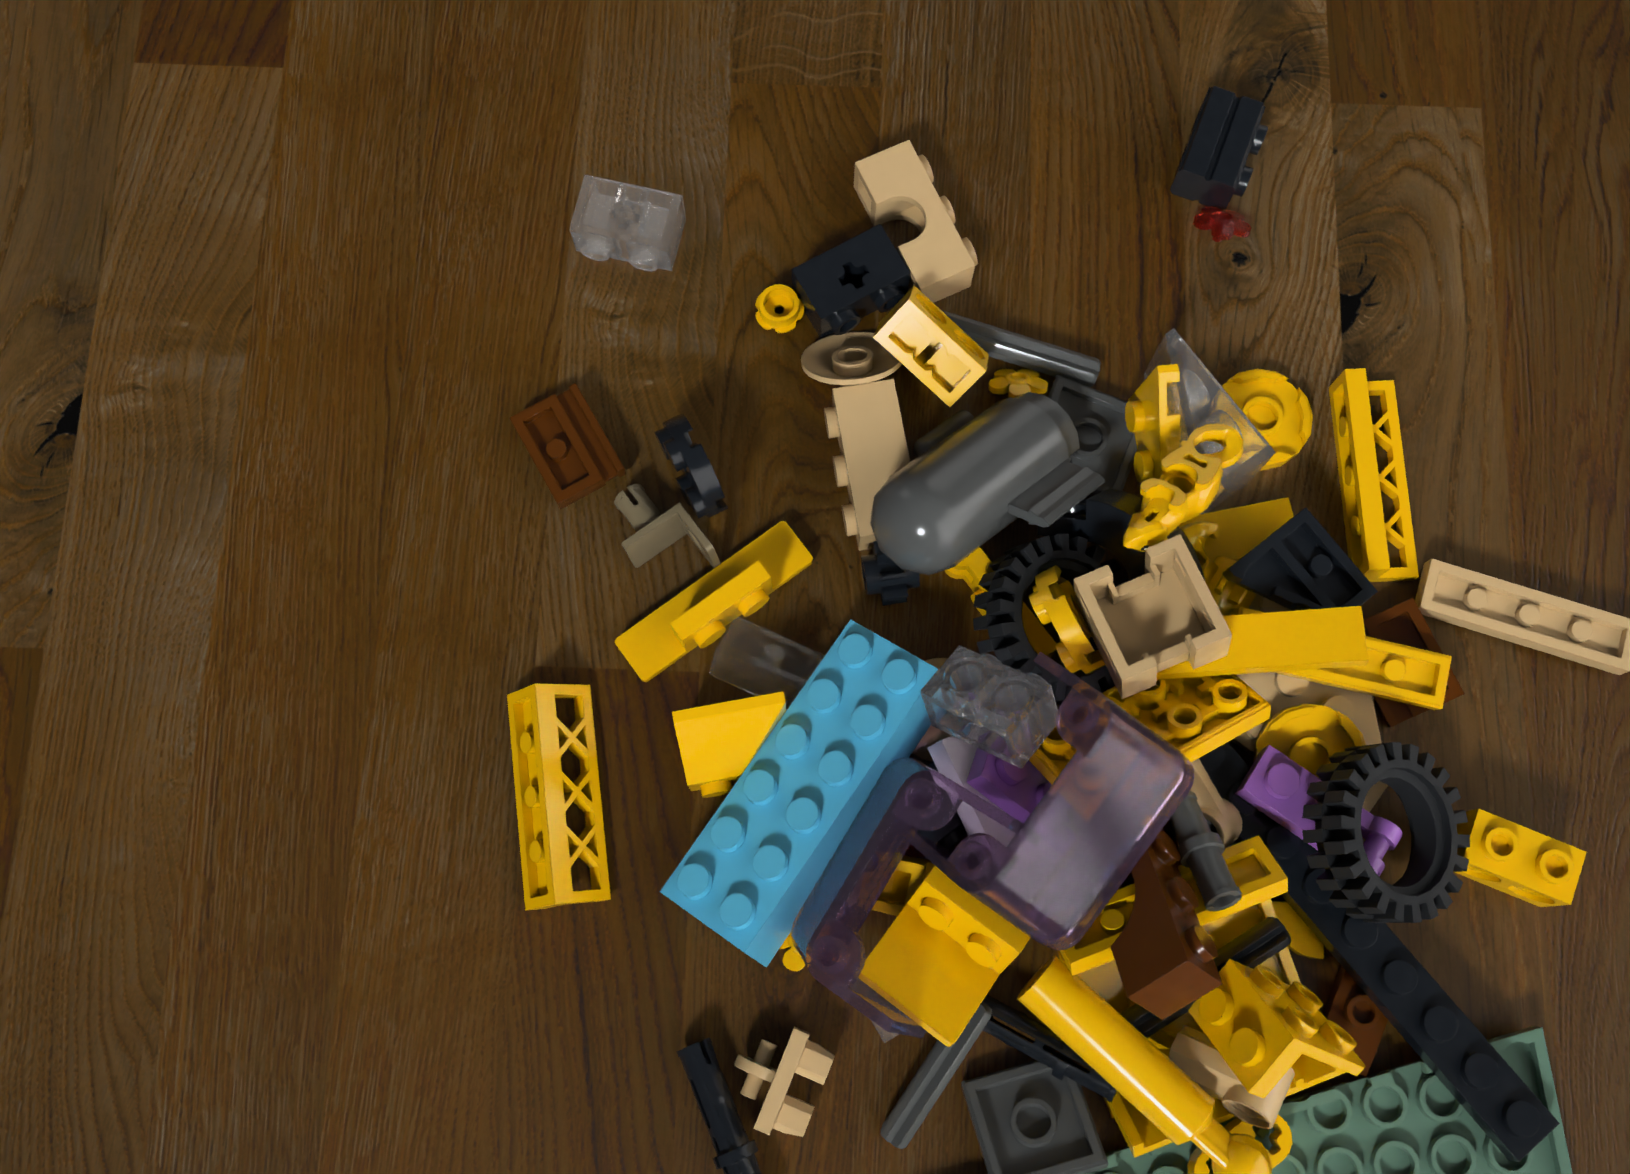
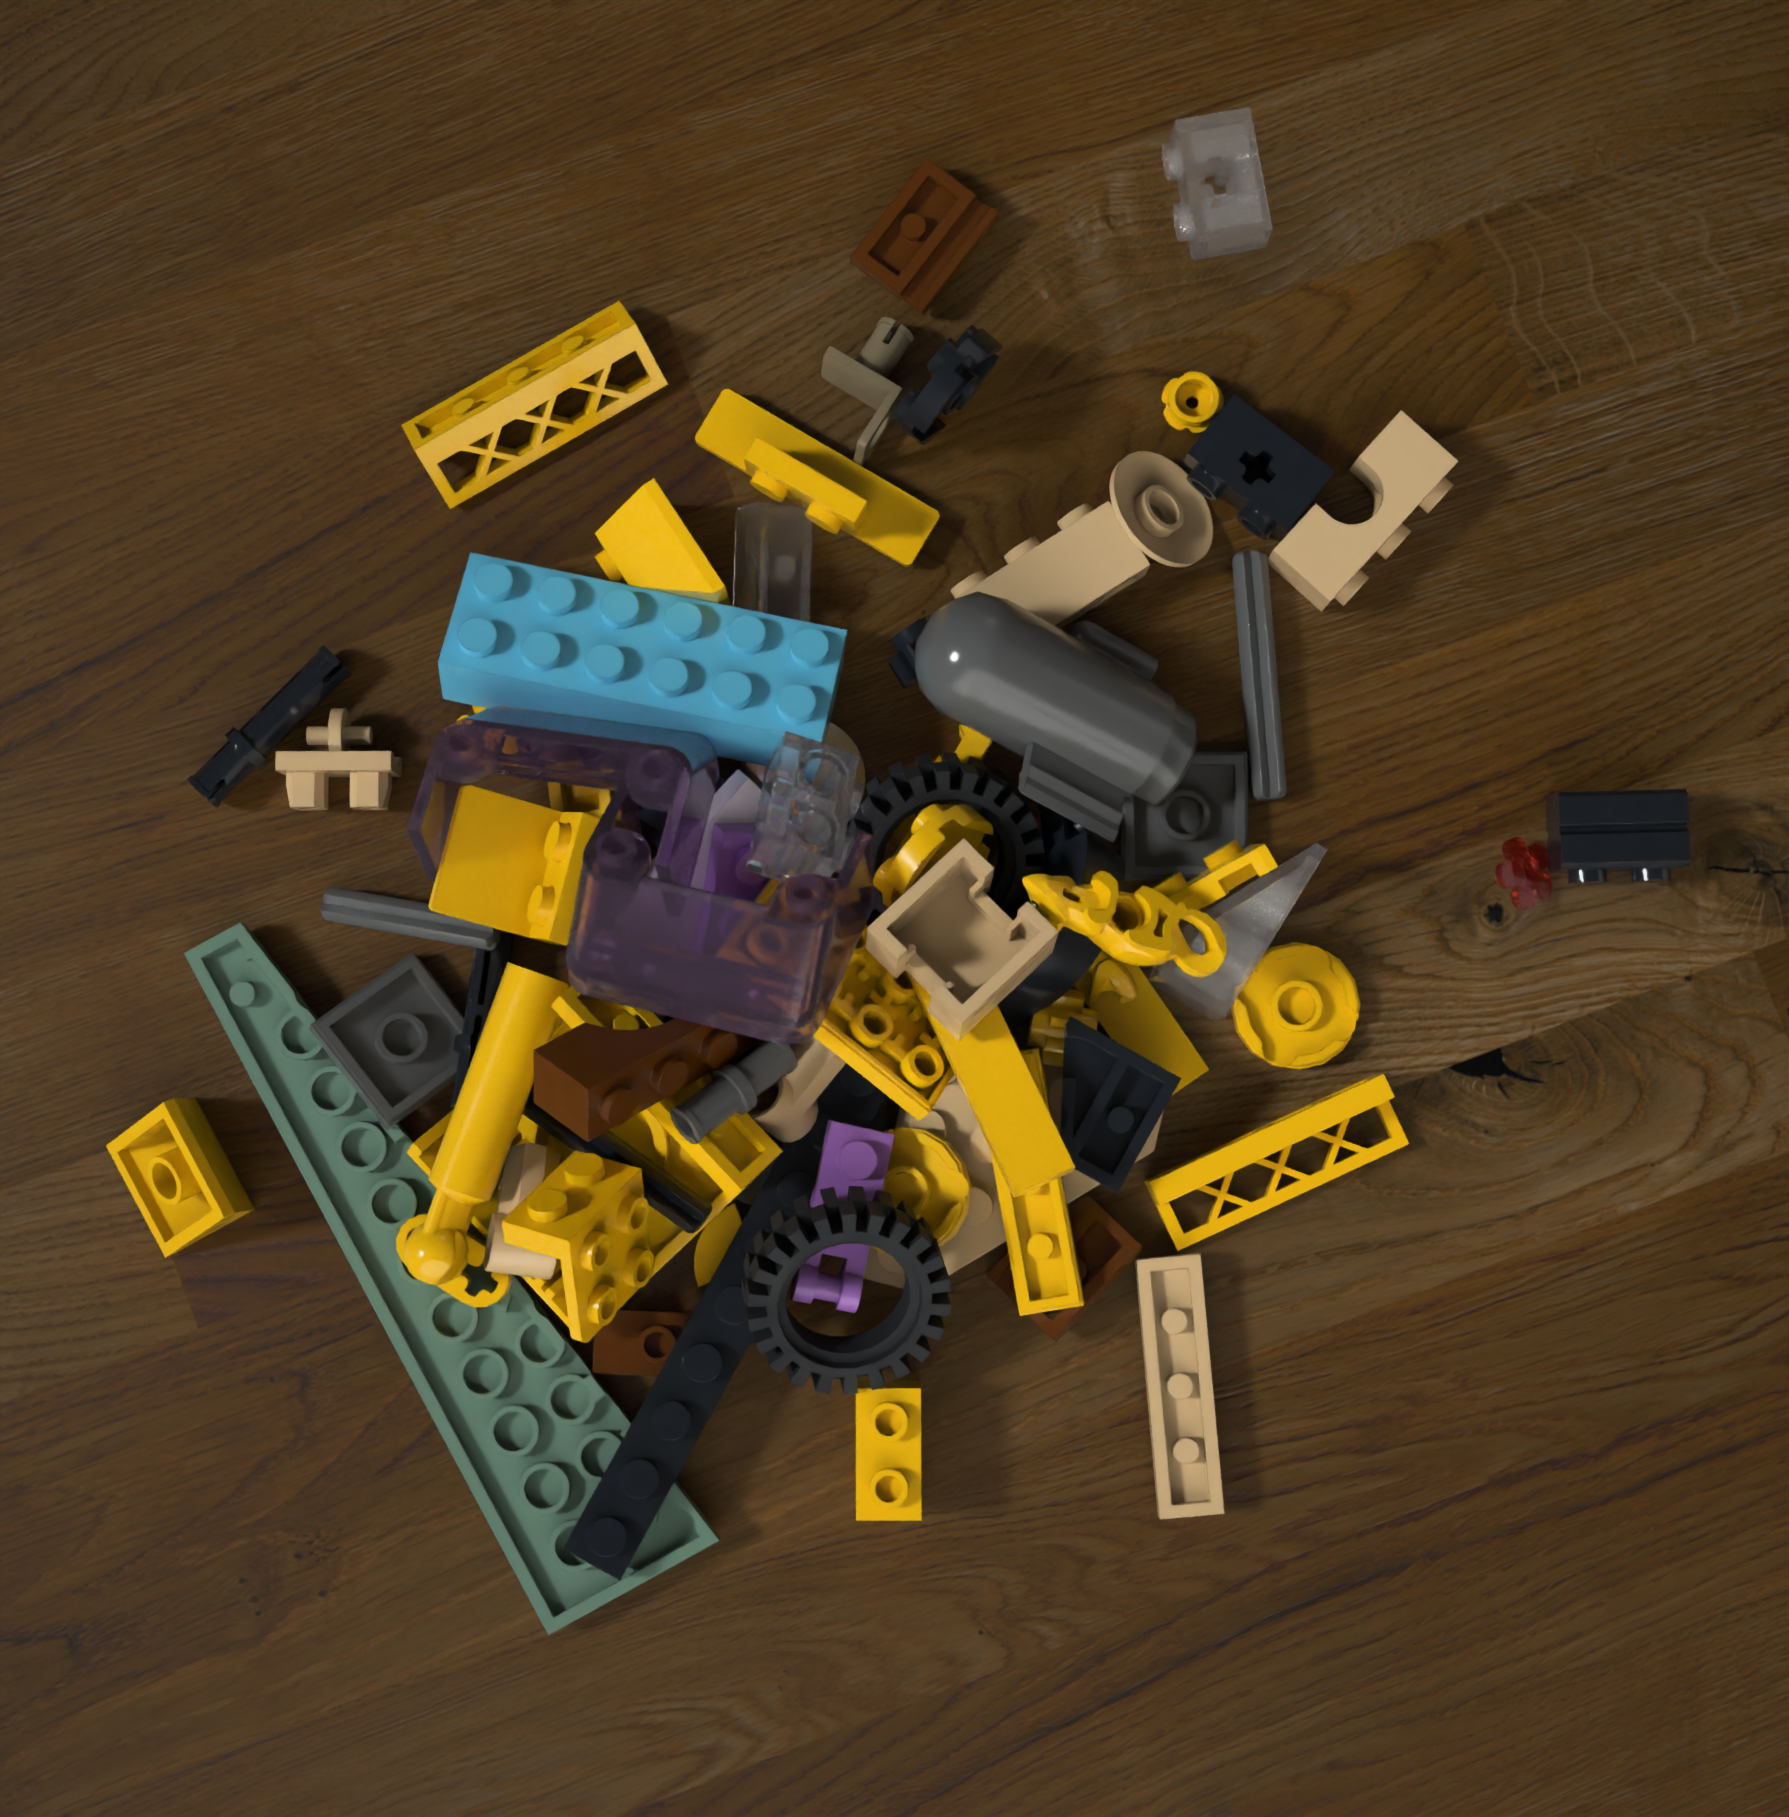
camera: 70 degrees right, 10 degrees up
(932, 346) = (1207, 591): yellow brick -> none
(1017, 382) = (1215, 710): yellow plant -> none

